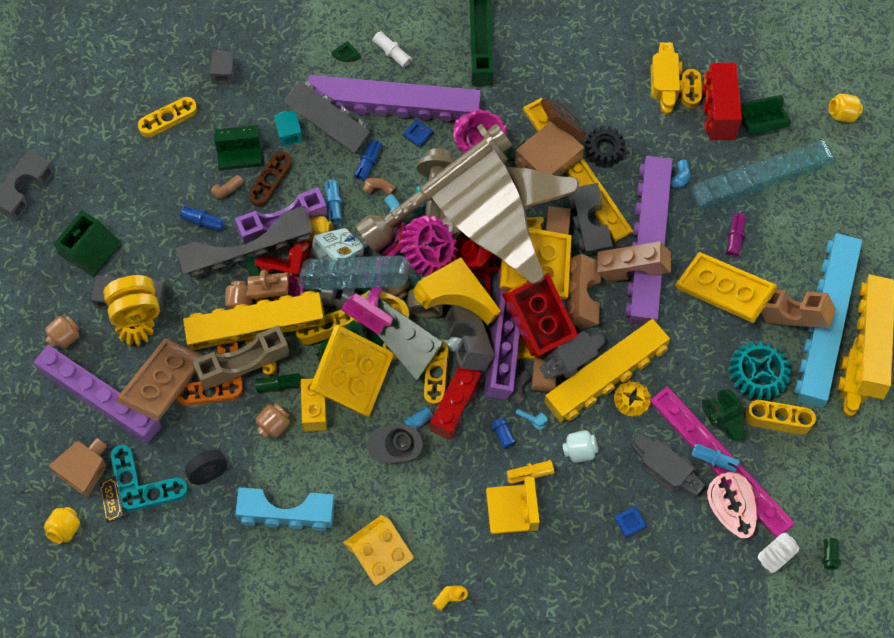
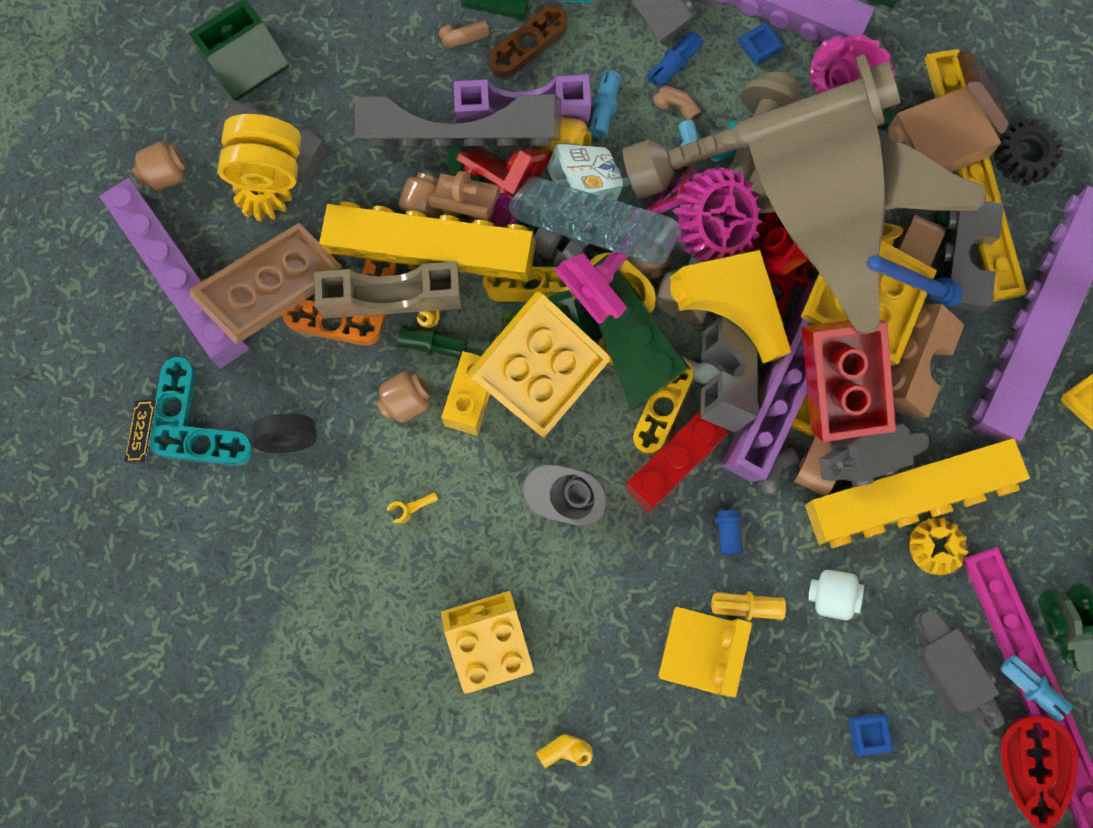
camera: 20 degrees right, 10 degrees up
(61, 525) = (57, 445): yellow head -> none
(81, 466) = (114, 369): medium nougat torso -> none
(201, 218) = (411, 66): blue axle -> none
(301, 486) = (411, 507): none -> yellow hand
(313, 512) = (333, 515): medium azure arch -> none
(419, 418) = (613, 467): dark azure pin -> none
(538, 422) = (786, 532): medium azure hand -> none
(579, 246) = (941, 291): none -> blue piece
(650, 257) = (1042, 345): medium nougat arch -> none

